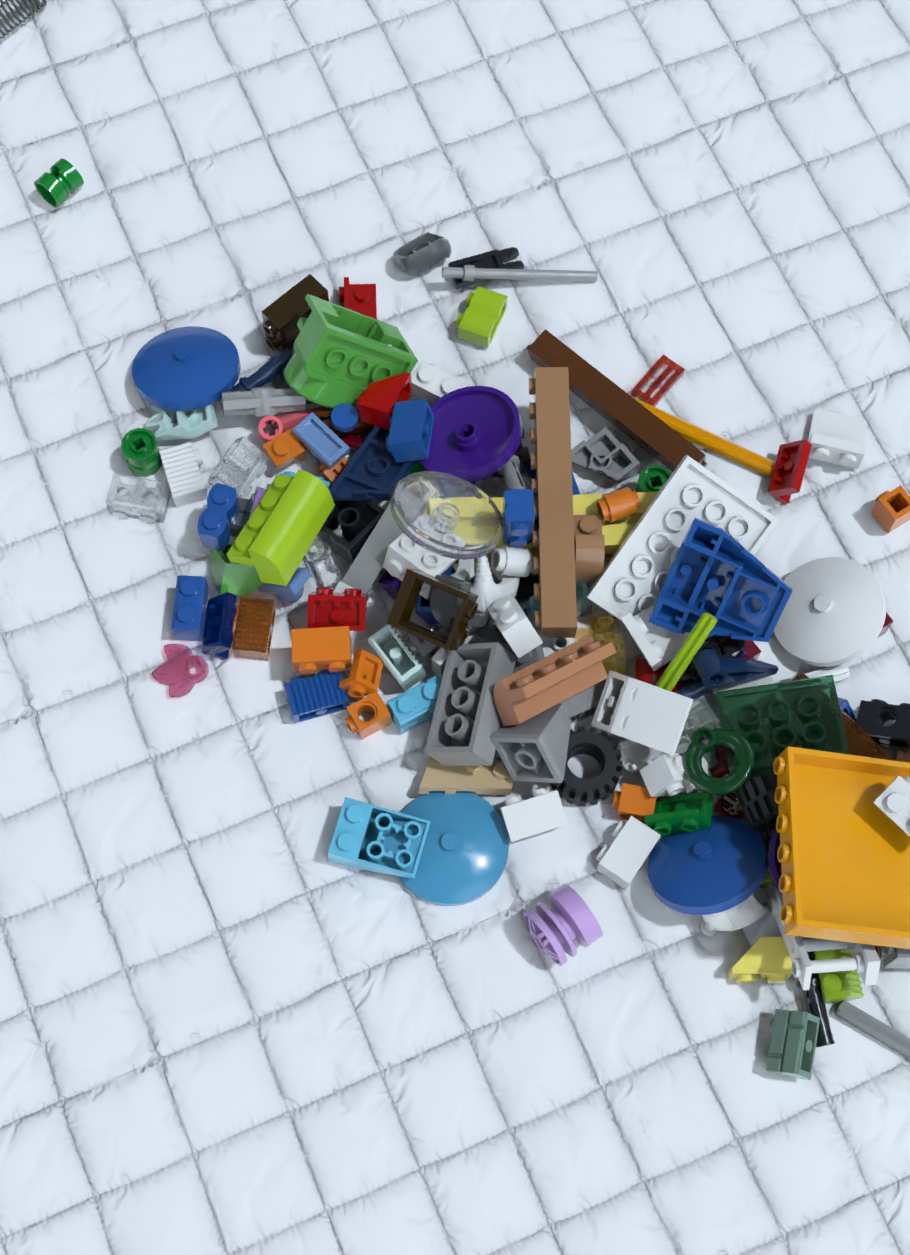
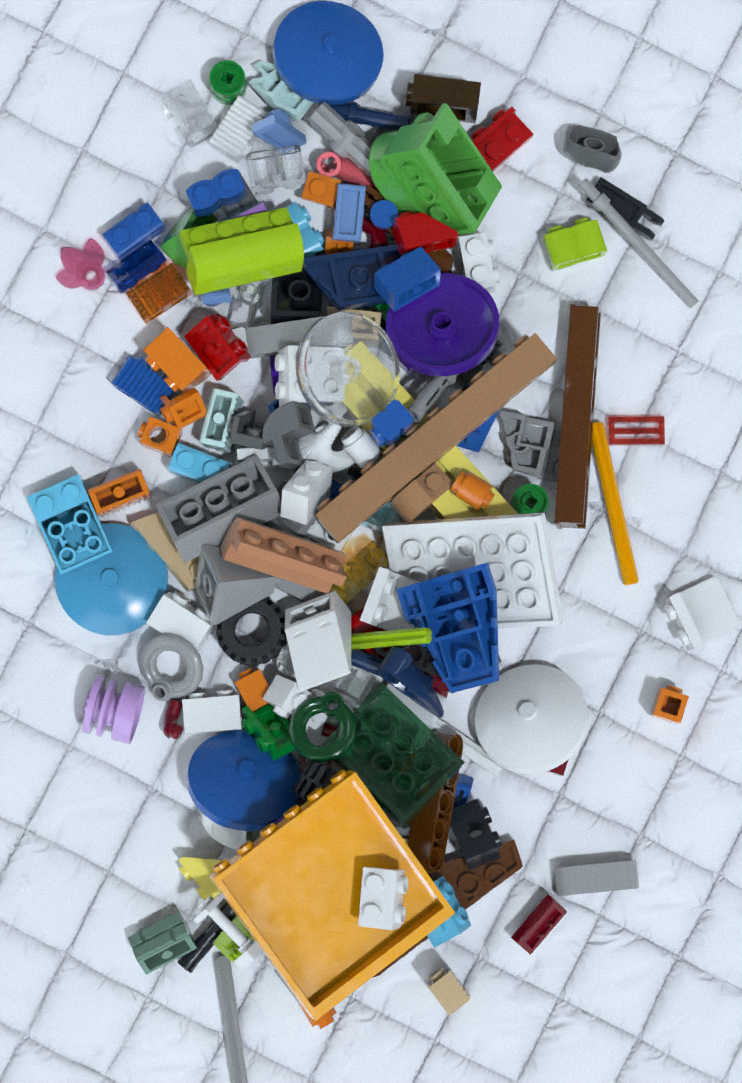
camera: 50 degrees right, 15 degrees up
(212, 442) = (277, 130): none -> medium blue tile
(388, 777) = (120, 493): none -> orange brick
(406, 601) = (237, 406): dark brown window -> none
(583, 865) = (172, 688): none -> light grey piece
(603, 890) = (171, 715): none -> dark red arm
(789, 470) = (635, 597): red bracket -> none

